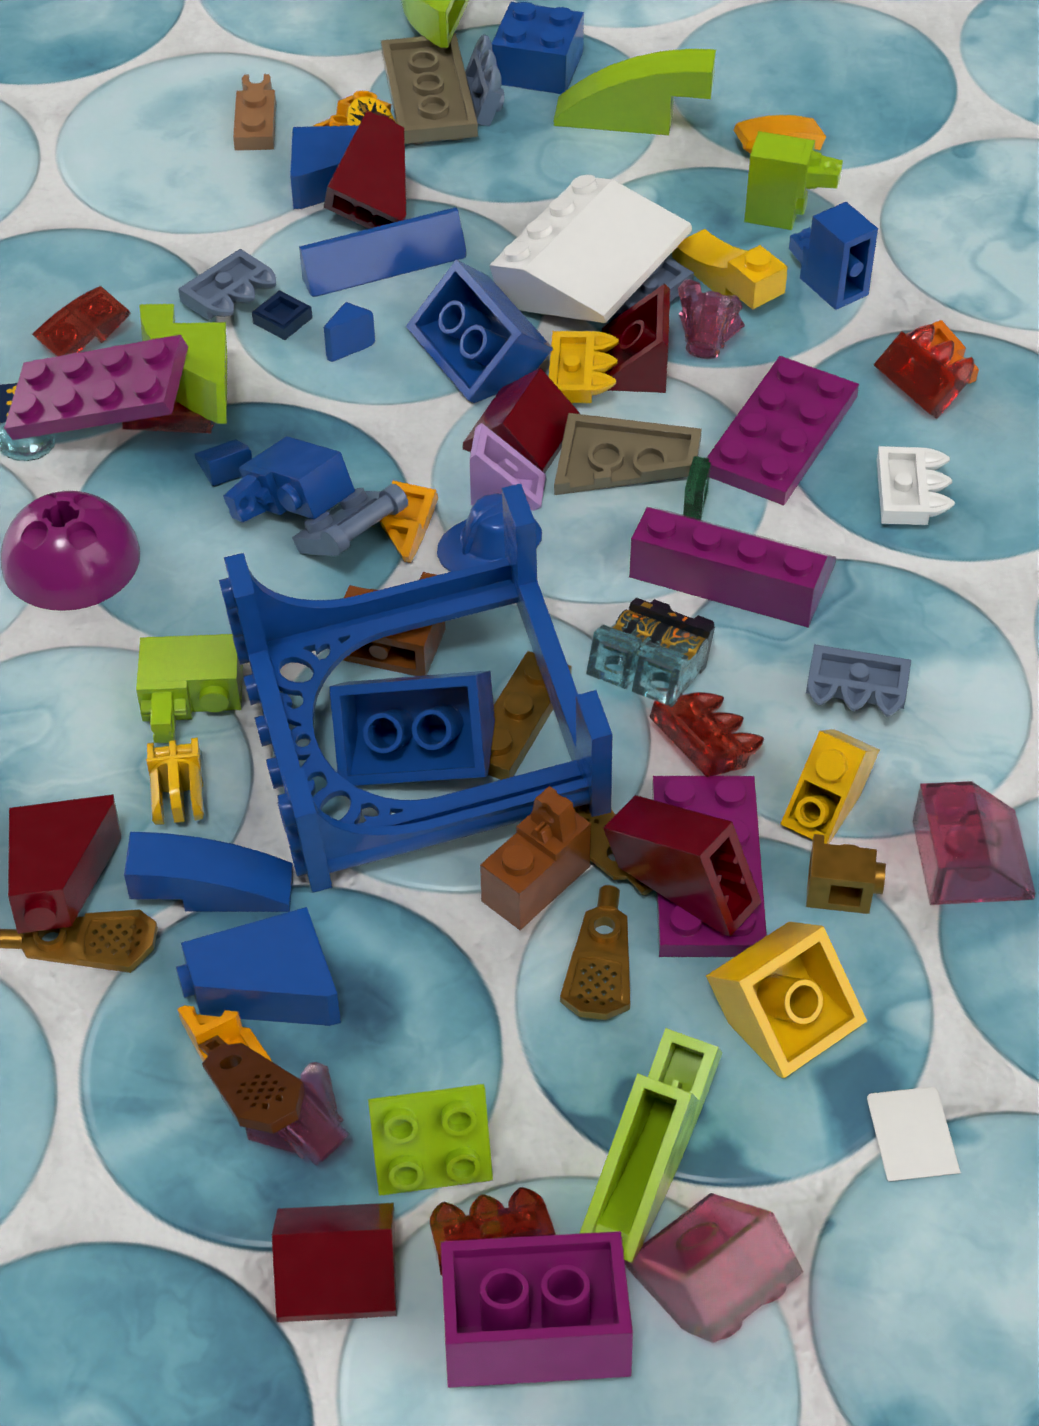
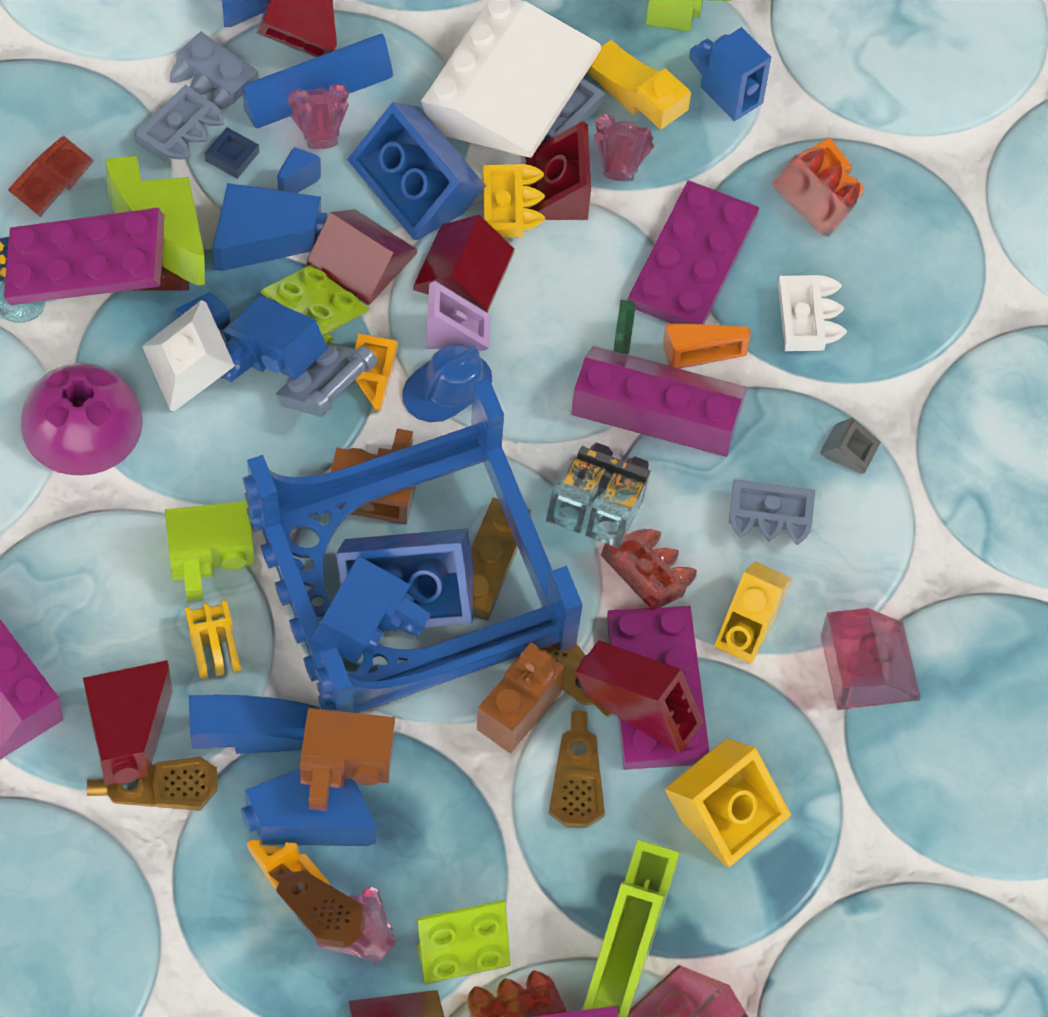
camera: 10 degrees left, 10 degrees up
(196, 491) = (188, 356): none -> white slope
(271, 241) = (213, 69): none -> sand blue plate
(304, 897) = (342, 748): none -> dark orange hinge
(305, 378) = (265, 226): none -> blue slope
(357, 744) = (364, 608): none -> blue hinge
(361, 450) = (317, 297): none -> lime hinge
(380, 277) = (319, 114): none -> clear pink rock
(404, 410) = (359, 254): none -> slope
(622, 452) = (556, 291): dark tan wing -> none
(773, 507) = (703, 344): none -> orange slope
(843, 877) = (767, 693): pearl gold brick -> none
(912, 1134) = (829, 905): white sticker -> none
(956, 621) = (850, 445): none -> dark grey slope

